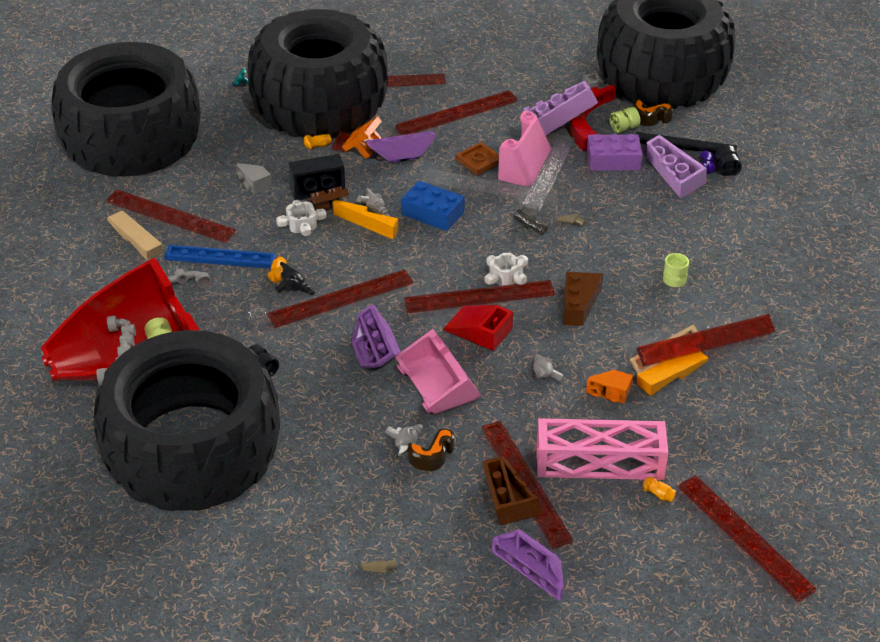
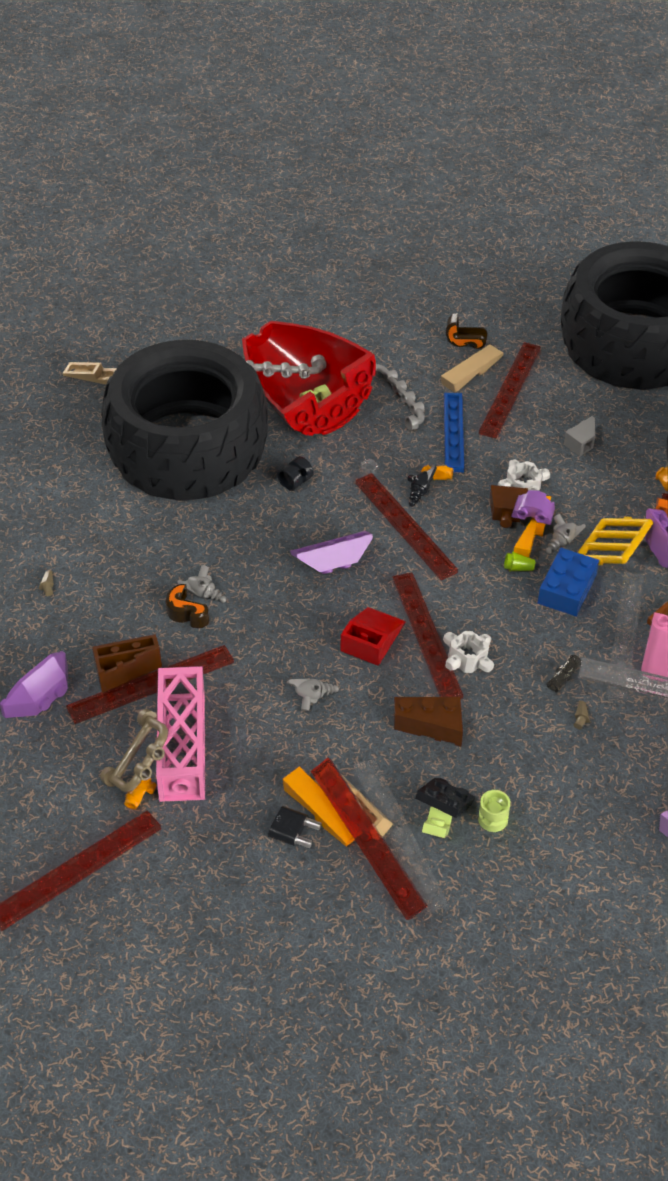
camera: 85 degrees right, 5 degrees up
(40, 525) = (89, 371): none -> tan slope
(85, 231) = (464, 336): none -> dark brown animal
(316, 175) = (586, 479): black brick -> none
(321, 200) = (558, 492): reddish brown plate -> none
(331, 230) = (502, 503): none -> reddish brown torso
(352, 207) = (534, 505): none -> medium lavender cylinder
(394, 155) = (628, 548): none -> yellow bar
(402, 233) = (518, 562): none -> lime cone
(436, 374) = (293, 610): bright pink windscreen -> none
(610, 385) = (288, 751): orange slope -> none
(648, 448) = (112, 776): none -> dark tan bar
(663, 295) = (445, 797): none -> black plate
(688, 305) = (437, 823): none -> yellowish green bracket
(691, 392) = (289, 825): none -> black piece

